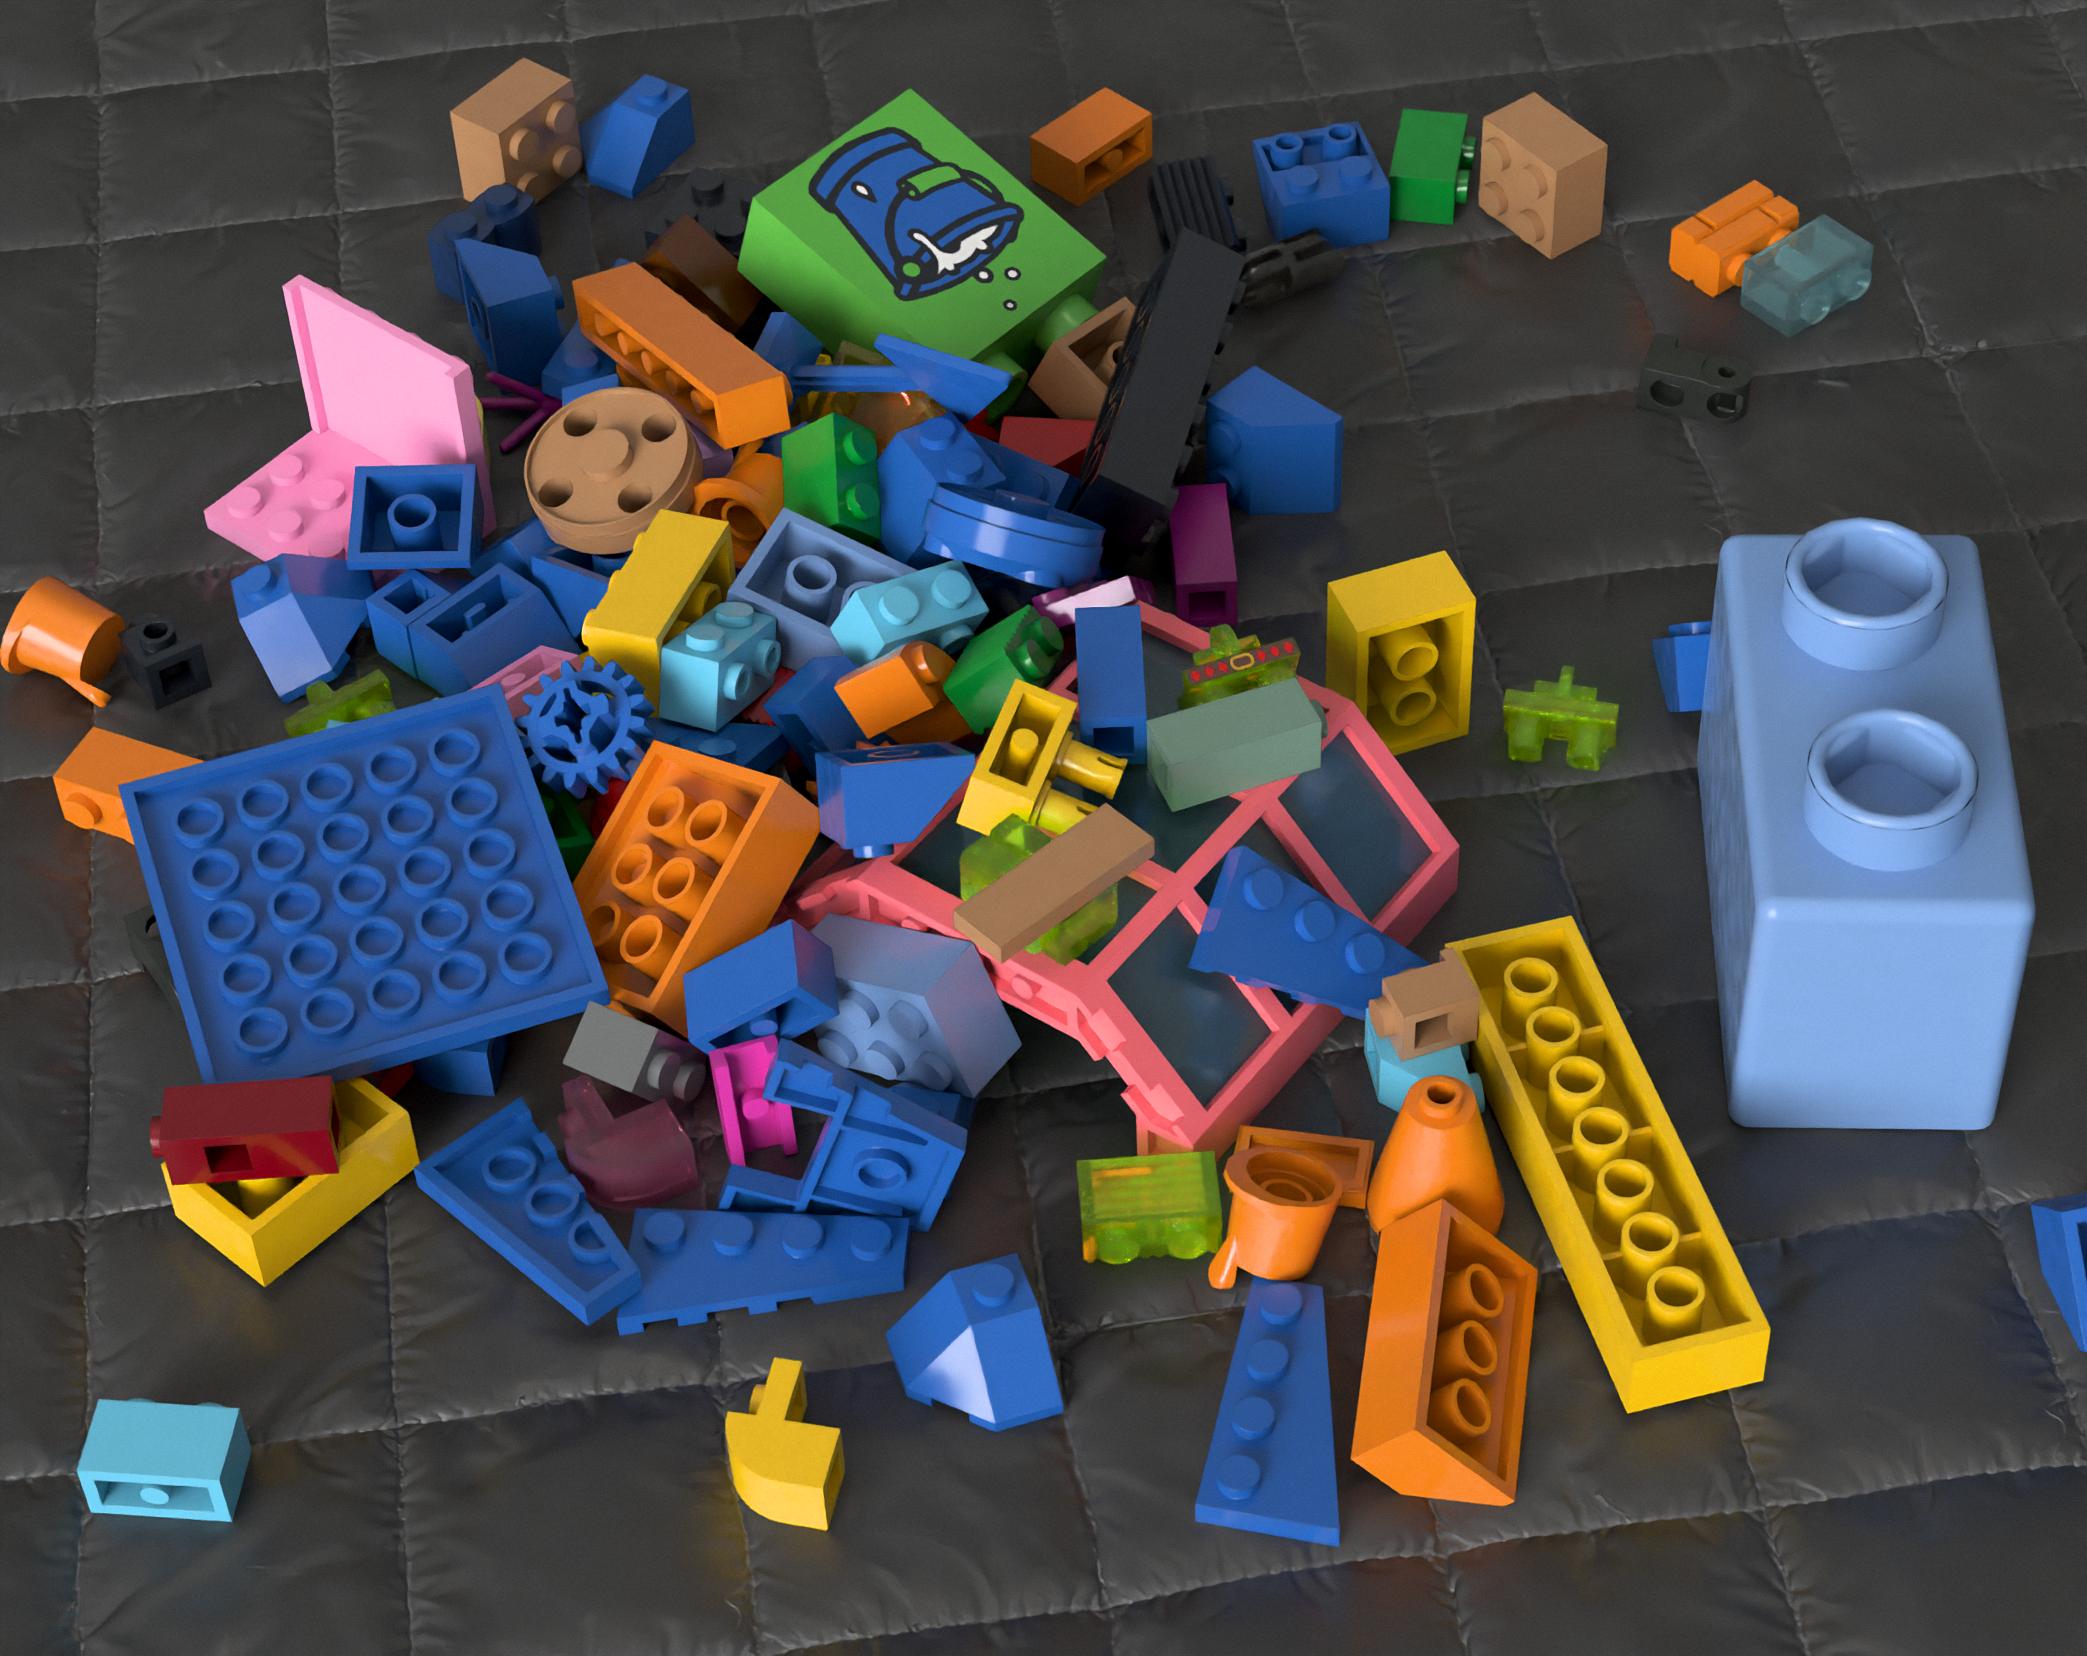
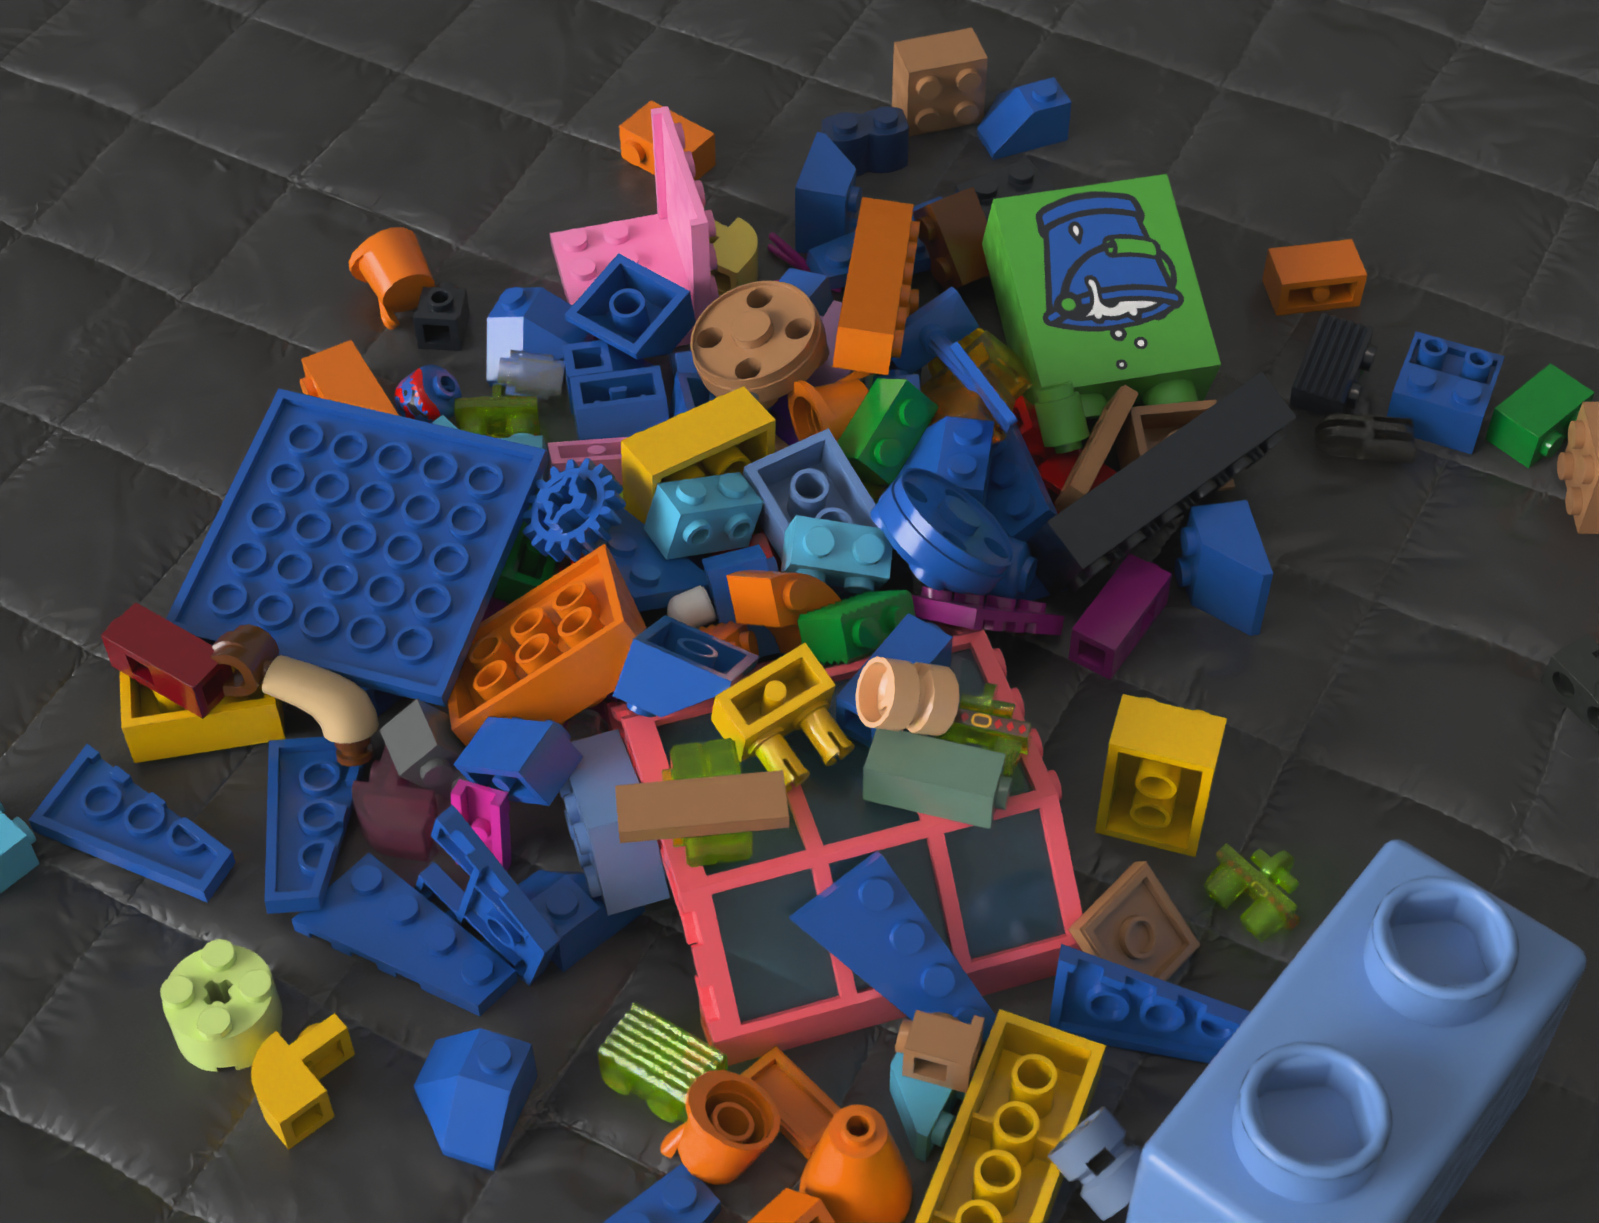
camera: 35 degrees right, 5 degrees up
(240, 726) = (427, 394): none -> blue head
(244, 355) = (637, 141): none -> orange brick
(309, 1351) = (119, 822): none -> blue wing
(348, 651) = (531, 374): none -> clear brick
(488, 1065) = (332, 700): none -> piece
(635, 1434) = (221, 1005): none -> yellowish green brick
(791, 760) = (692, 608): none -> white piece
(1012, 404) = (1061, 417): none -> bright green brick
(1053, 398) = (1096, 447): none -> medium nougat tile
(1165, 669) = (907, 695): none -> light nougat wheel
(1495, 820) = (1136, 926): none -> medium nougat tile
(1578, 871) = (1138, 1010): none -> blue wing
(1682, 1006) = (1111, 1184): none -> sand blue wheel

